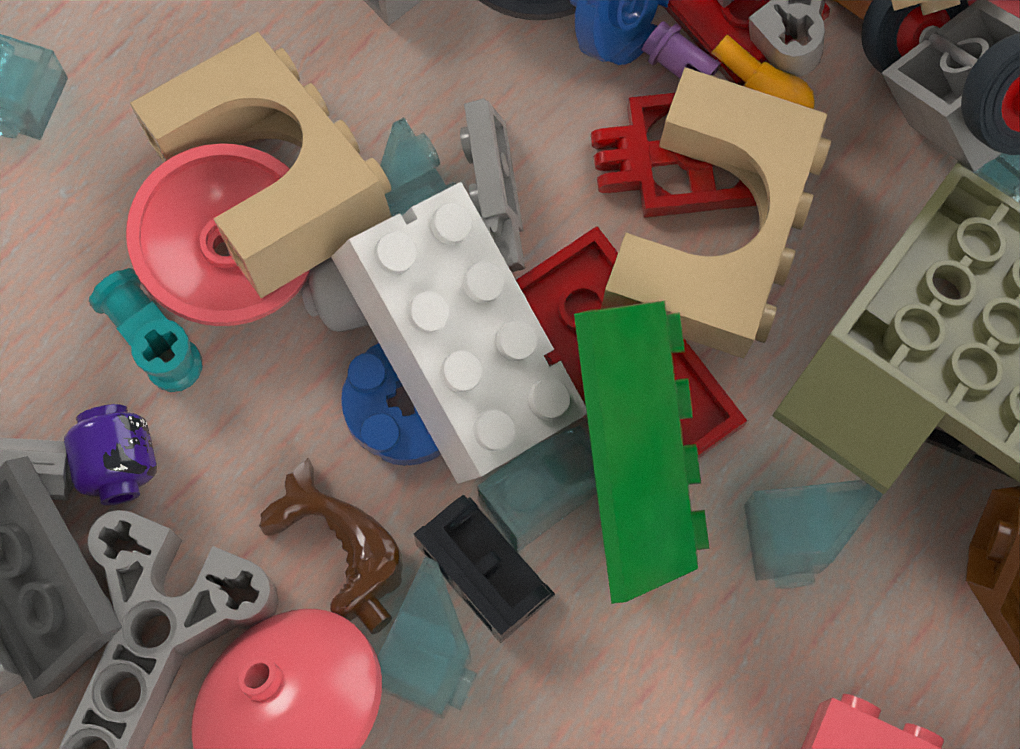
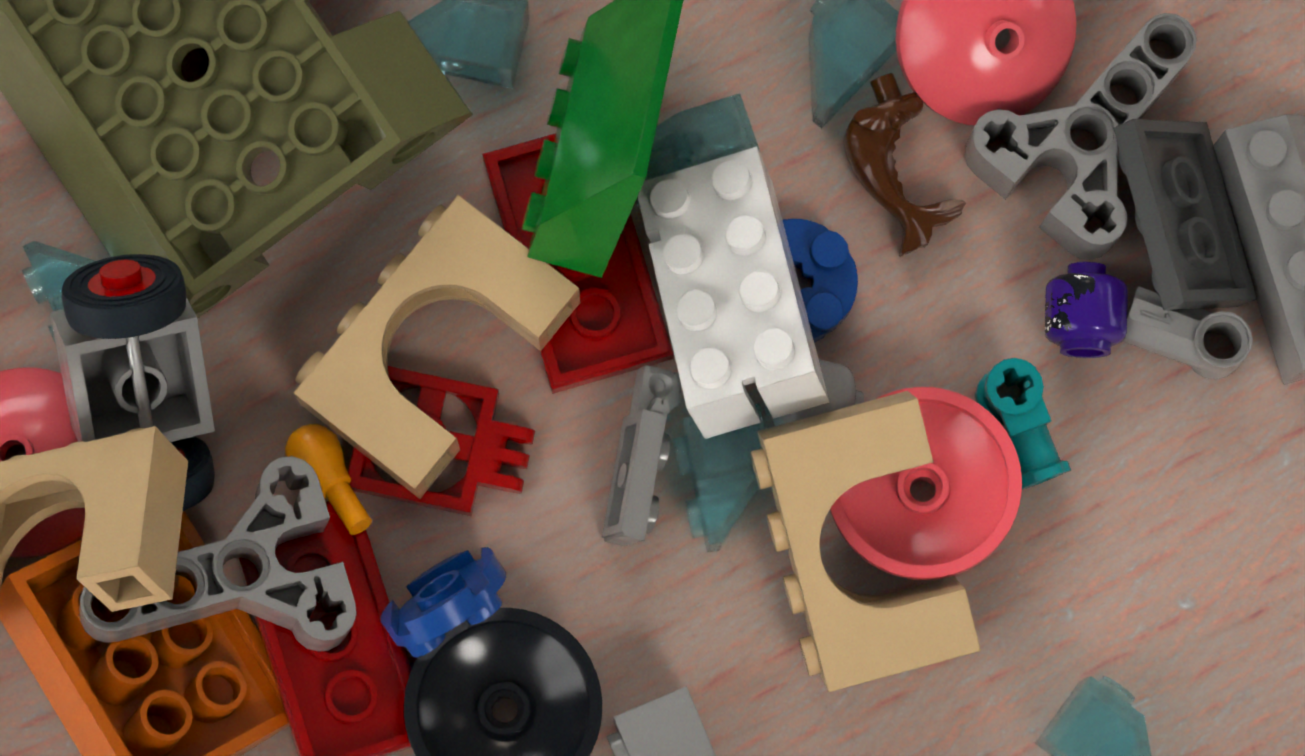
camera: 165 degrees left, 5 degrees up
(483, 567) = (775, 97): black hinge -> none
(677, 52) = (400, 541): medium lavender pin -> none

